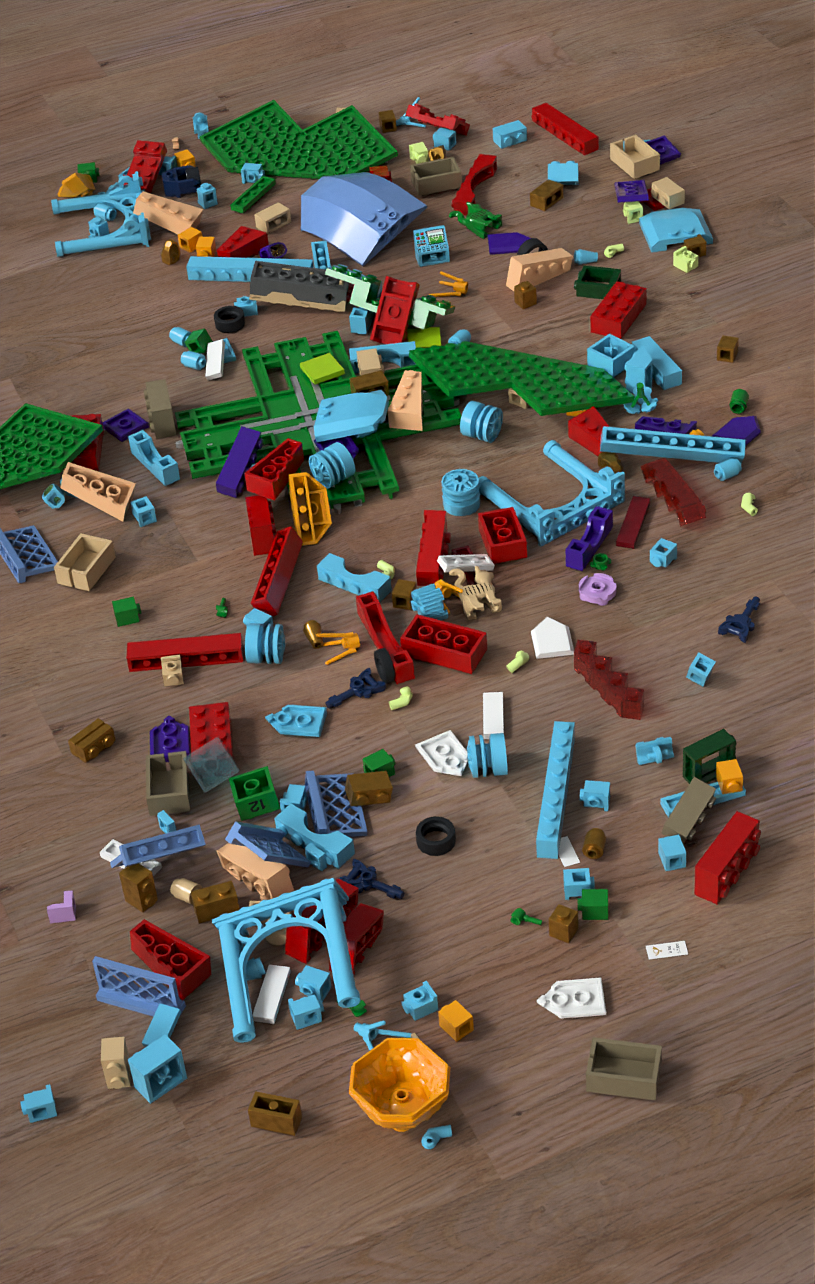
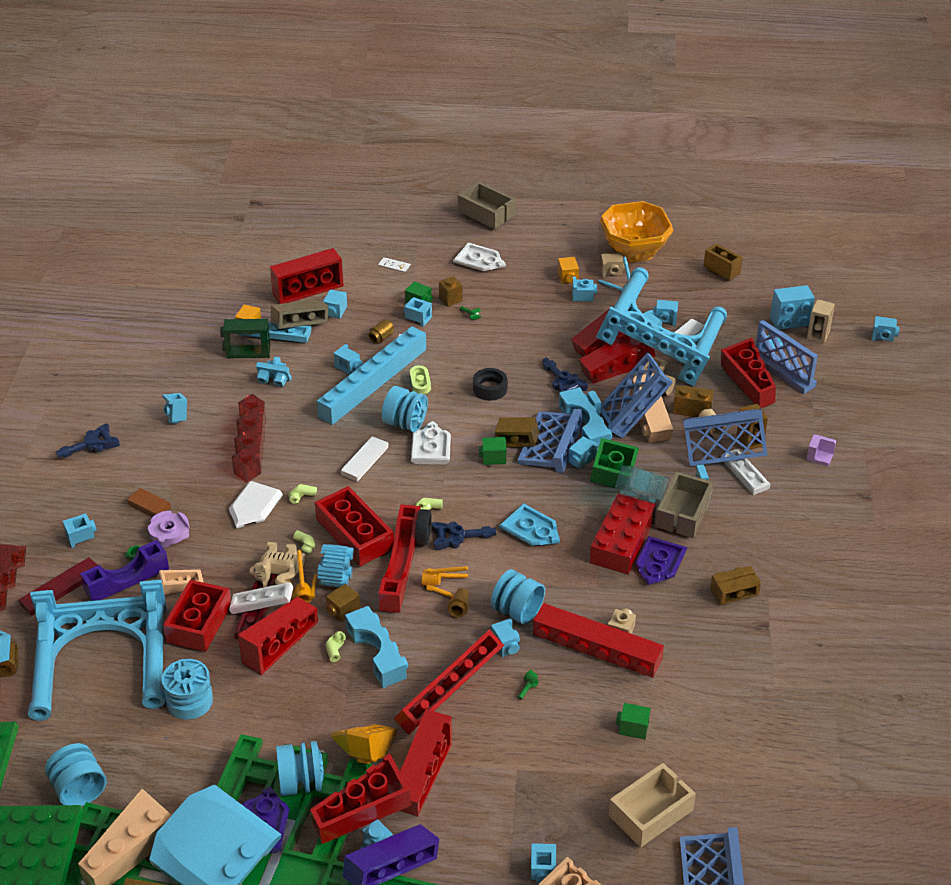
camera: 155 degrees left, 0 degrees up
(474, 624) = (307, 540): none -> yellowish green arm
(510, 812) = (420, 379): none -> yellowish green plate
(551, 550) = (173, 579): none -> light nougat slope
(636, 601) = (148, 502): none -> dark orange tile

